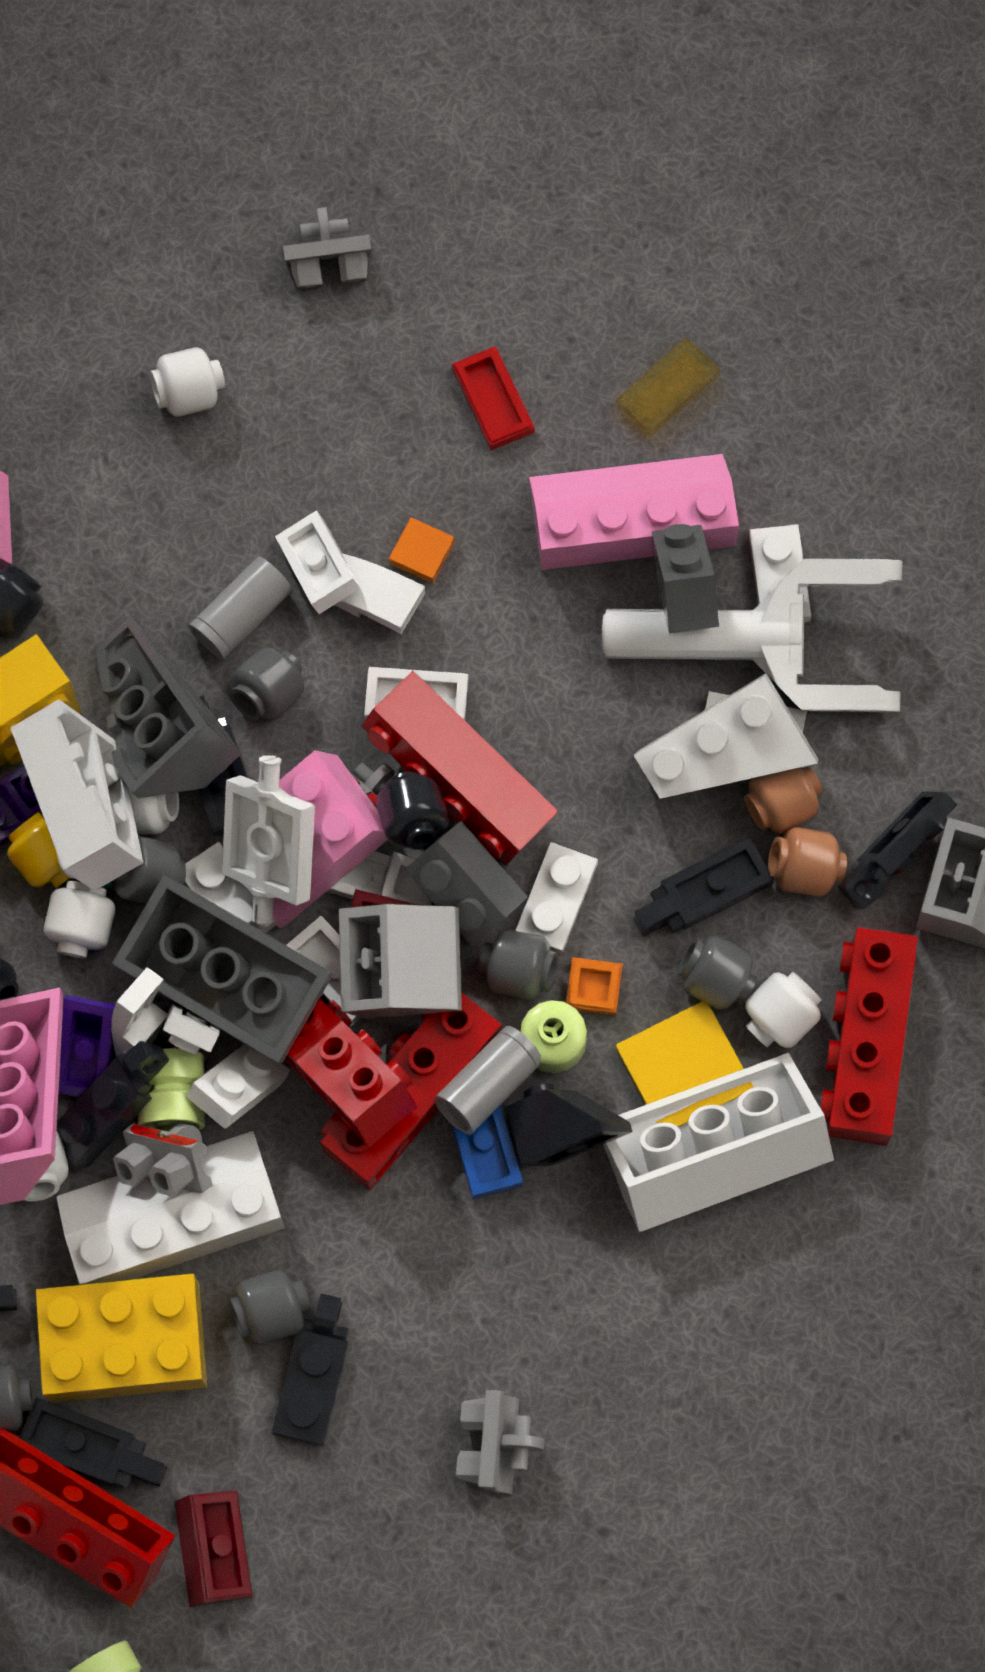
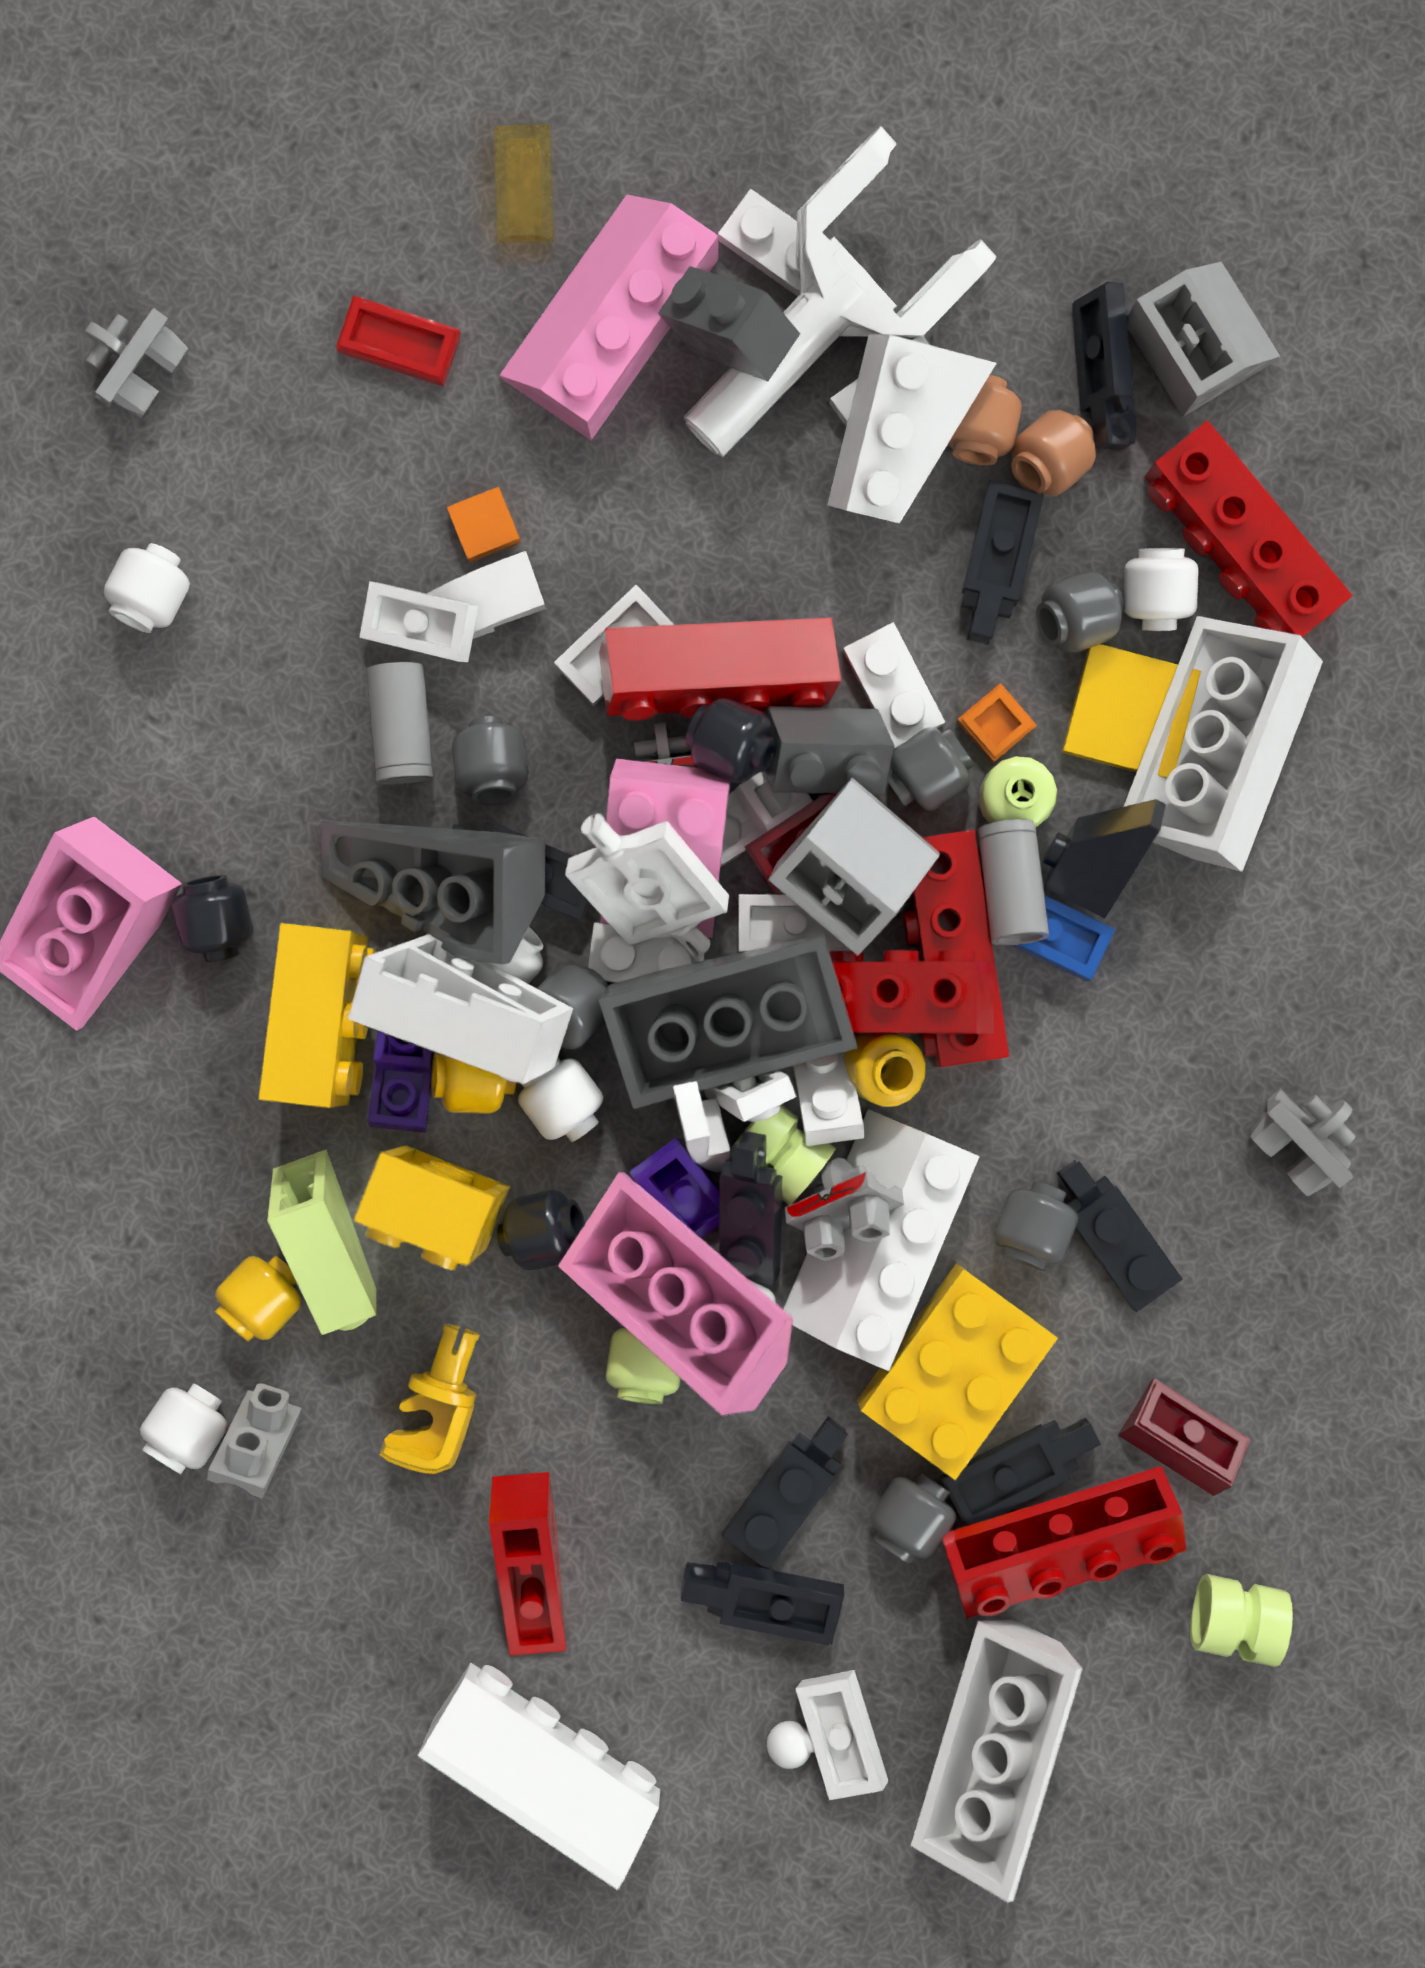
camera: 50 degrees left, 15 degrees up
(270, 1116) = (885, 1068): none -> yellow head

